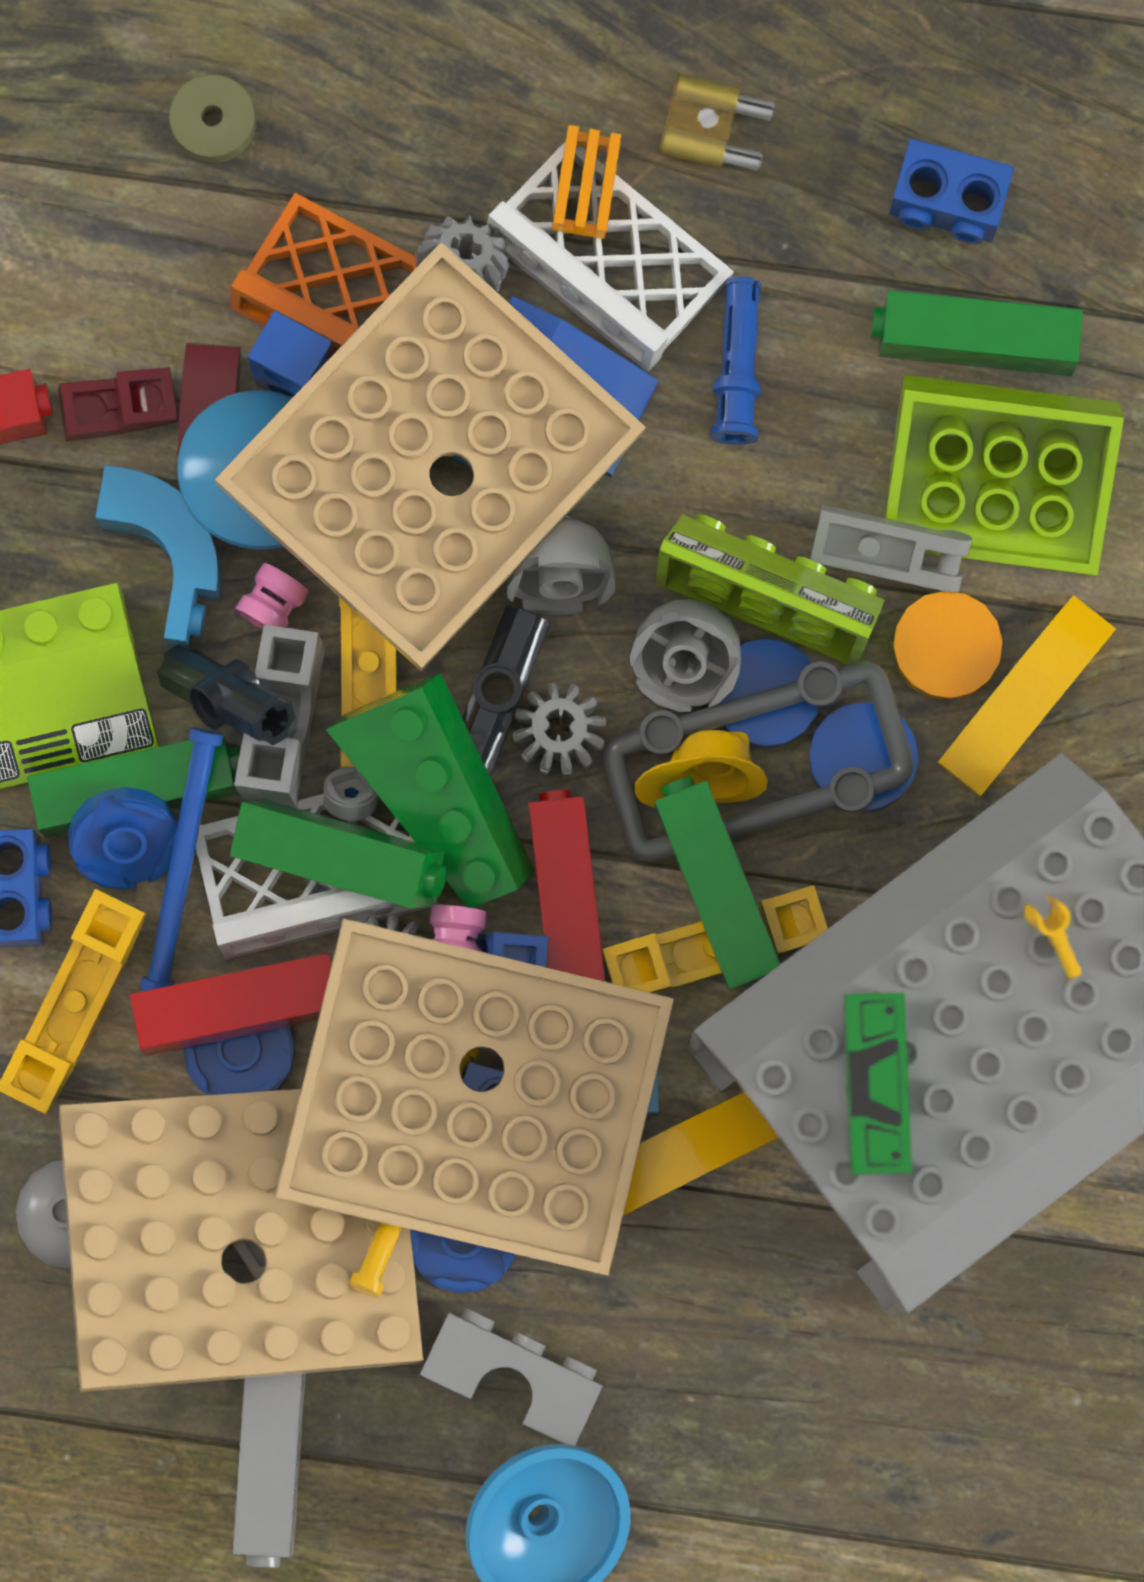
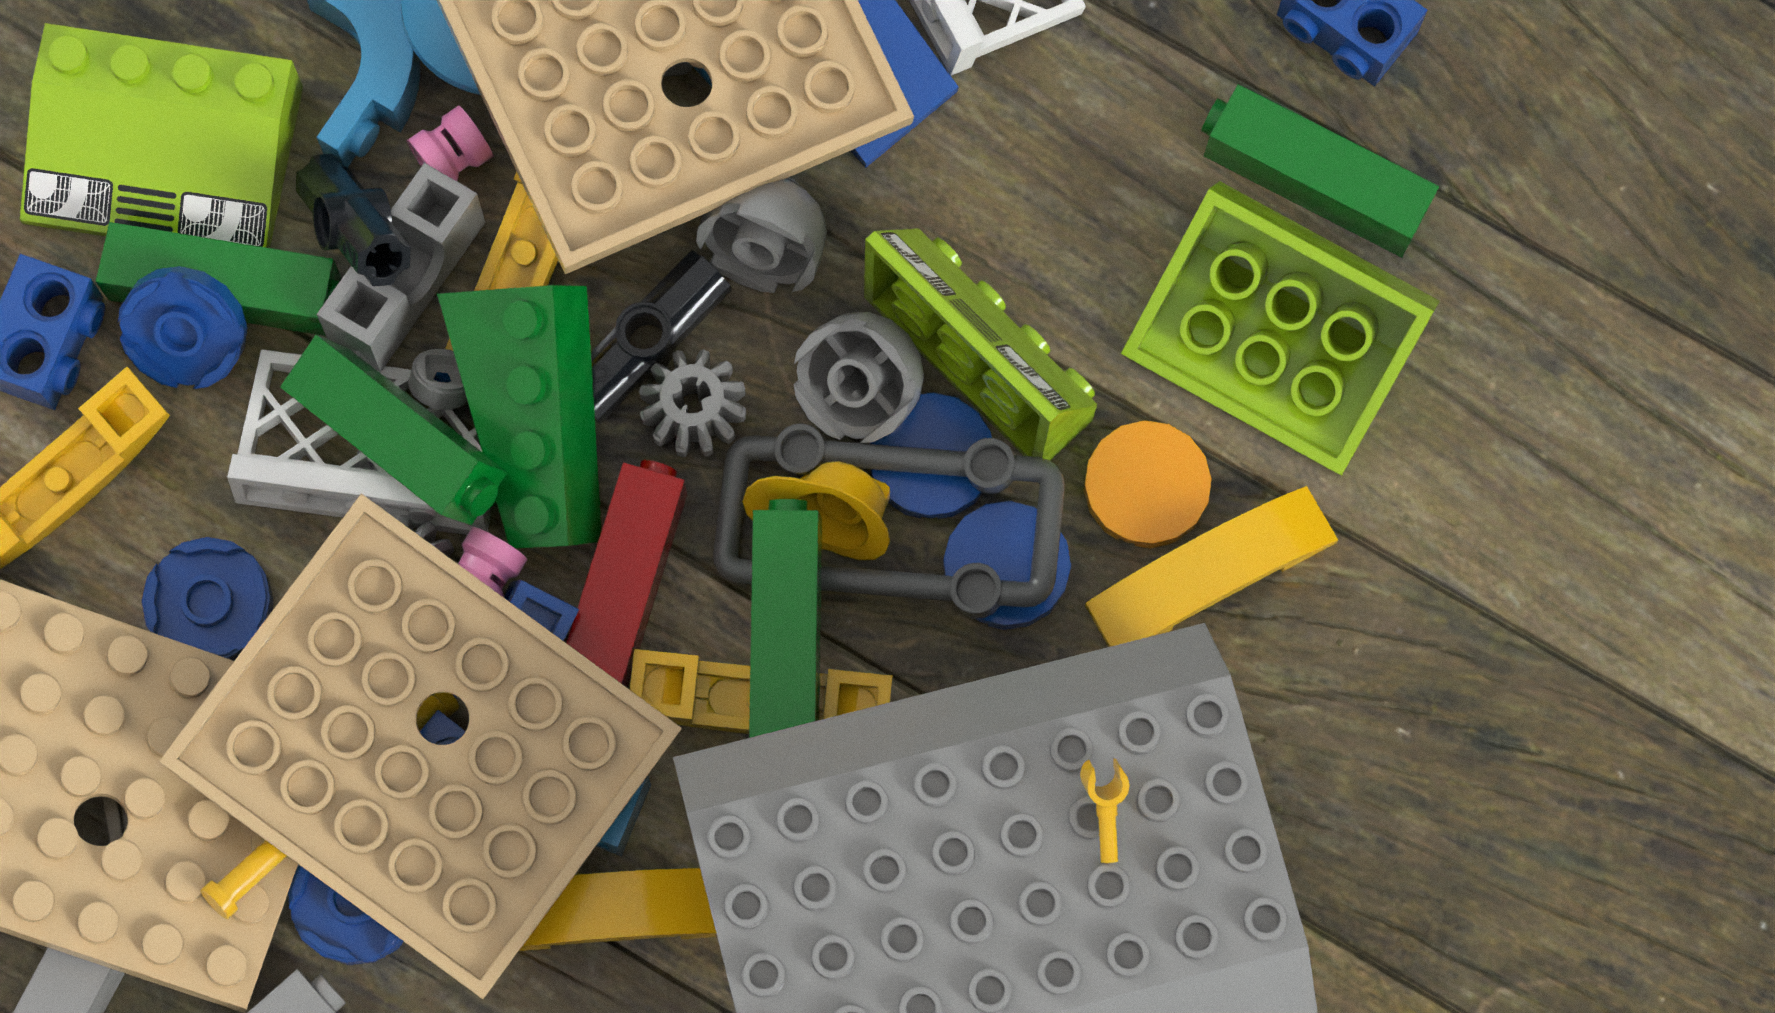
camera: 20 degrees right, 5 degrees down
(182, 858) = (230, 376): blue bar -> none
(230, 1005) = (204, 544): red brick -> none
(736, 386) = (1037, 123): blue pin -> none
(877, 1083) = (838, 889): green tile -> none
(889, 548) = (1126, 355): light grey plate -> none

